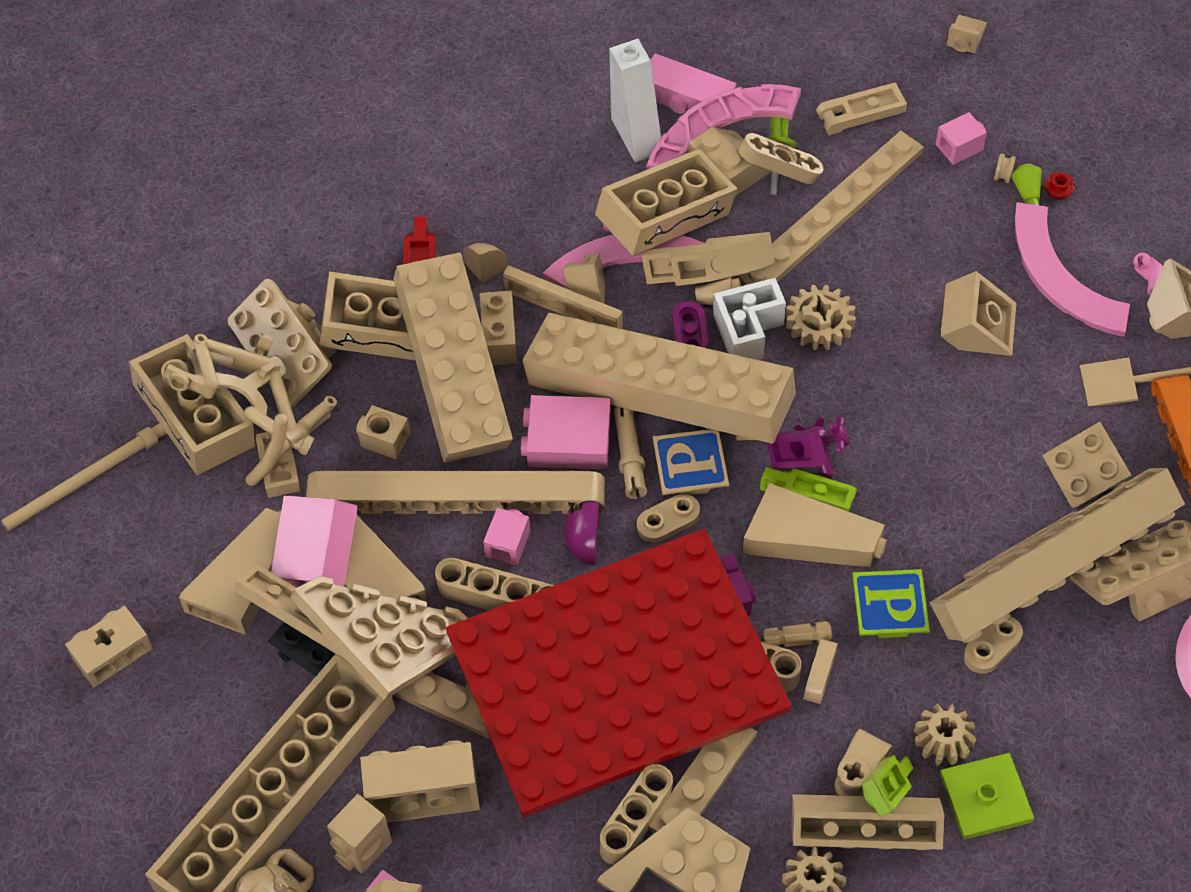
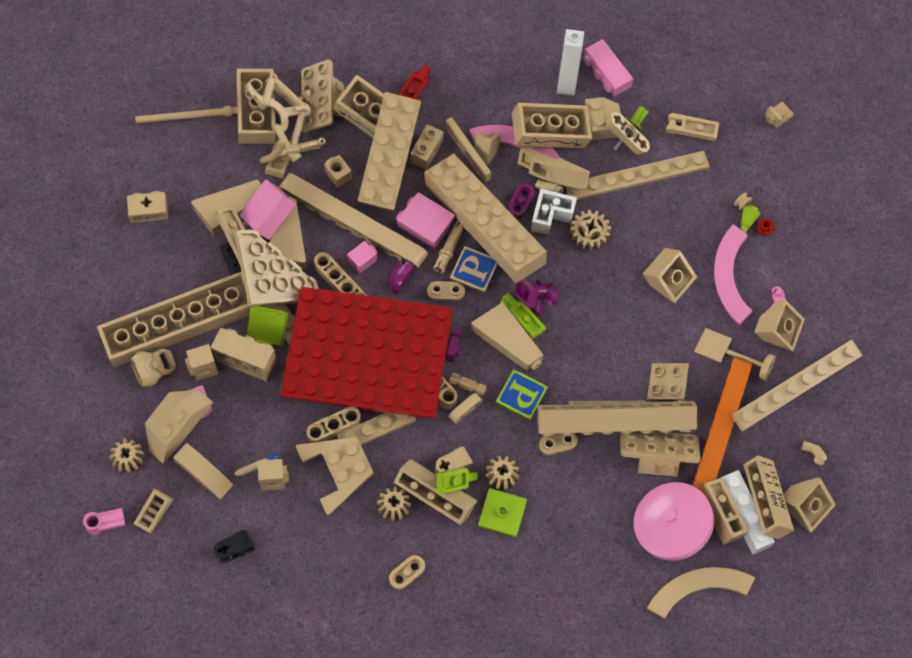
camera: 25 degrees right, 10 degrees up
(426, 715) = (267, 325): none -> lime piece
(484, 260) = (444, 107): tan brick -> none
(722, 110) = (612, 90): bright pink tile -> none
(961, 138) = (732, 172): bright pink brick -> none

